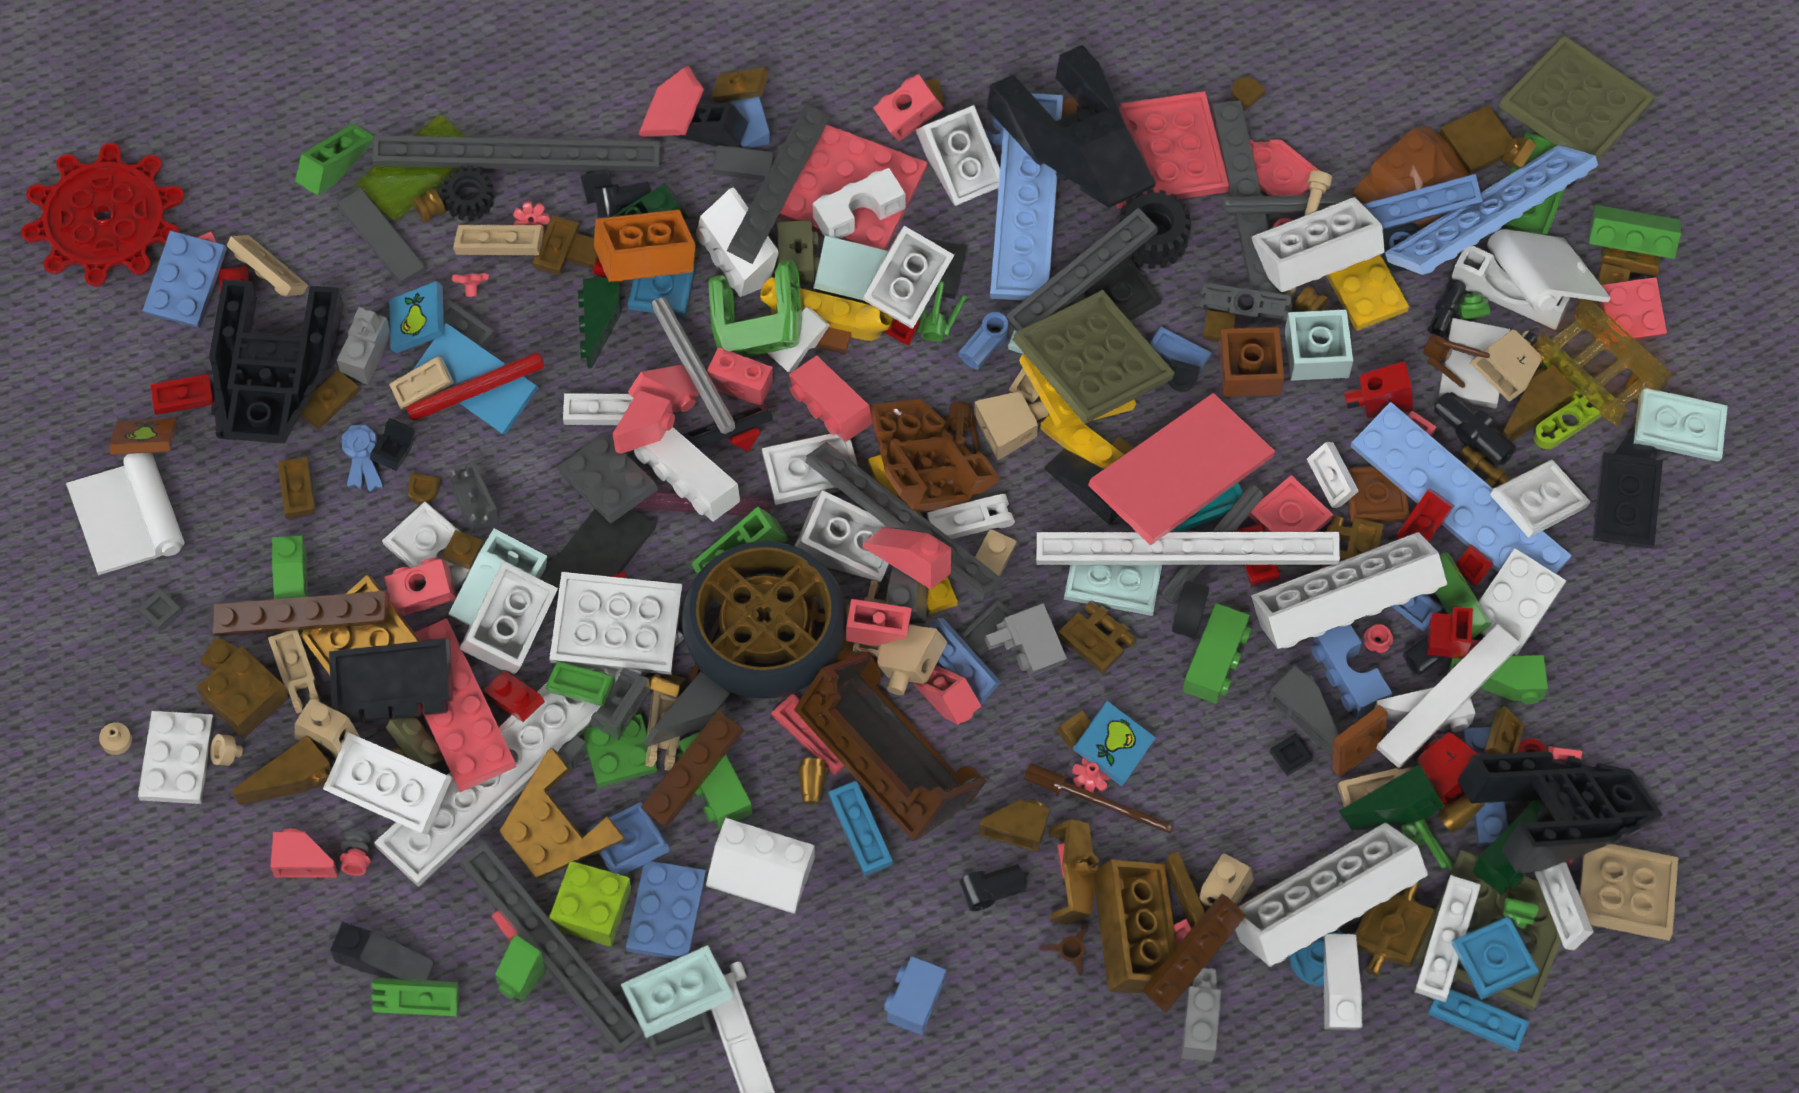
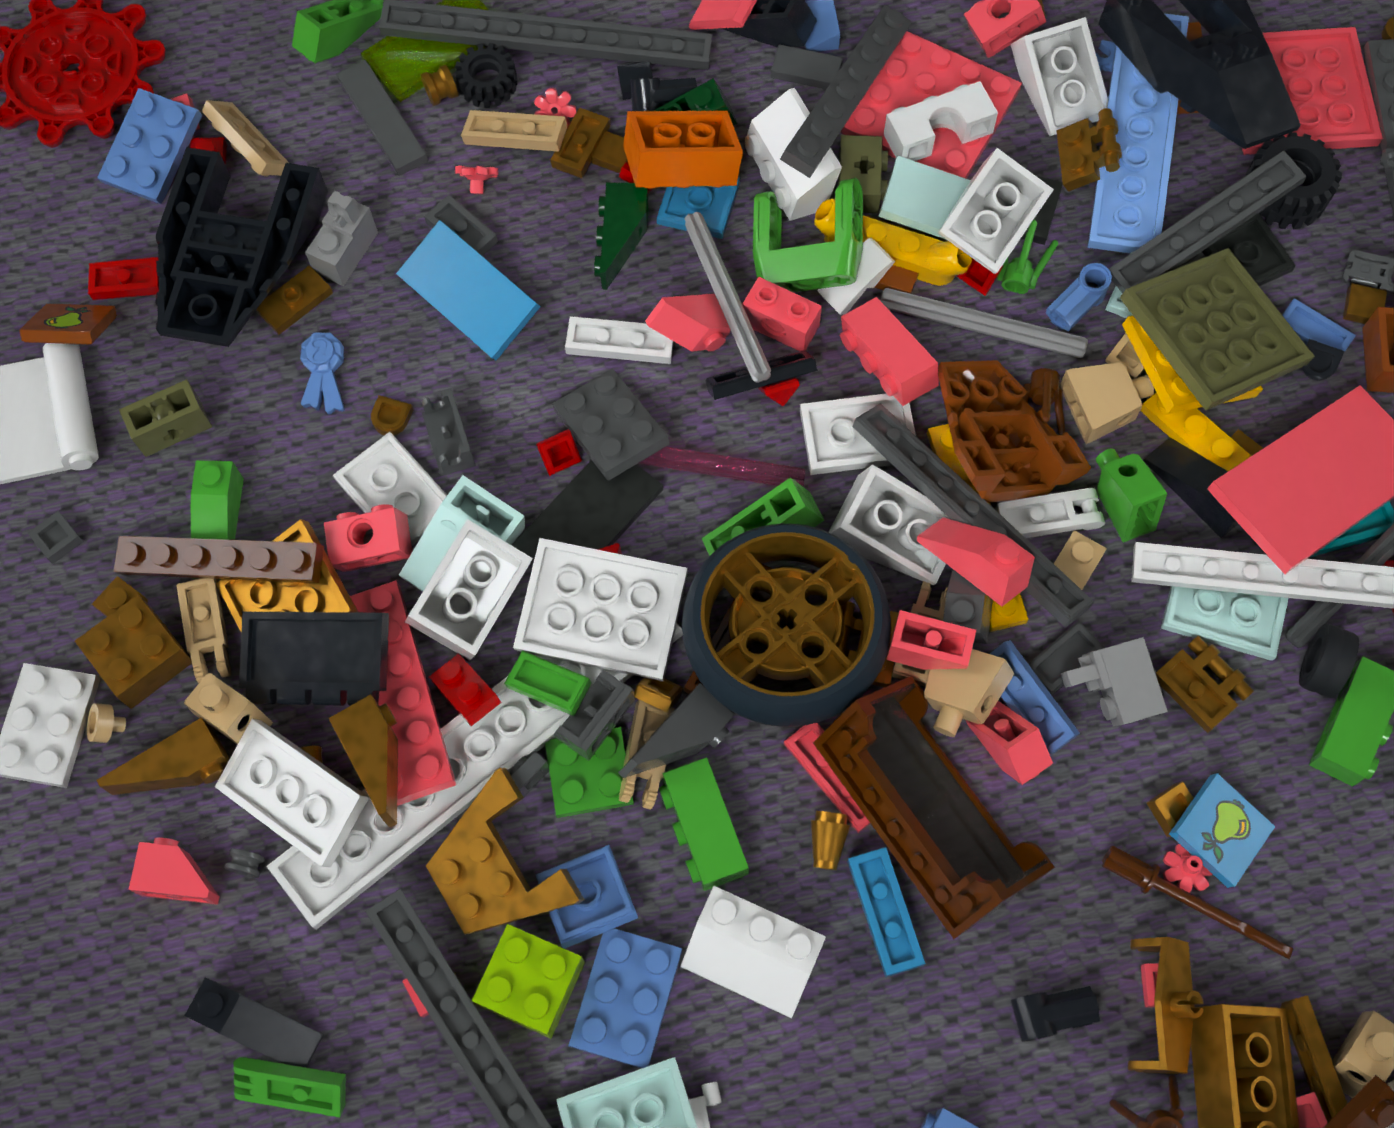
camera: 10 degrees right, 5 degrees up
(238, 506) = (165, 418): none -> olive brick
(296, 487) = (240, 401): pearl gold plate -> none
(354, 862) = (240, 888): coral plate -> none
(393, 444) = (361, 360): black bracket -> none
(416, 317) = (407, 211): dark azure tile -> none
(416, 741) = (323, 732): olive plate -> none
(421, 382) = (403, 289): tan plate -> none
(446, 737) = (373, 750): none -> pearl gold slope
(462, 550) = (424, 495): pearl gold plate -> none
(475, 386) = (465, 298): red axle -> none
(520, 969) = (425, 1068): bright green slope -> none
(567, 505) = (559, 452): none -> red slope
(643, 422) = (659, 360): coral slope -> none
(691, 474) = (707, 422): white brick -> none
(692, 769) = (676, 814): reddish brown plate -> none
(907, 368) = (984, 323): none -> light grey axle
(977, 217) = (1079, 154): none -> pearl gold plate
(1017, 824) = (1096, 930): pearl gold slope -> none
(1031, 496) = (1129, 494): none -> bright green torso

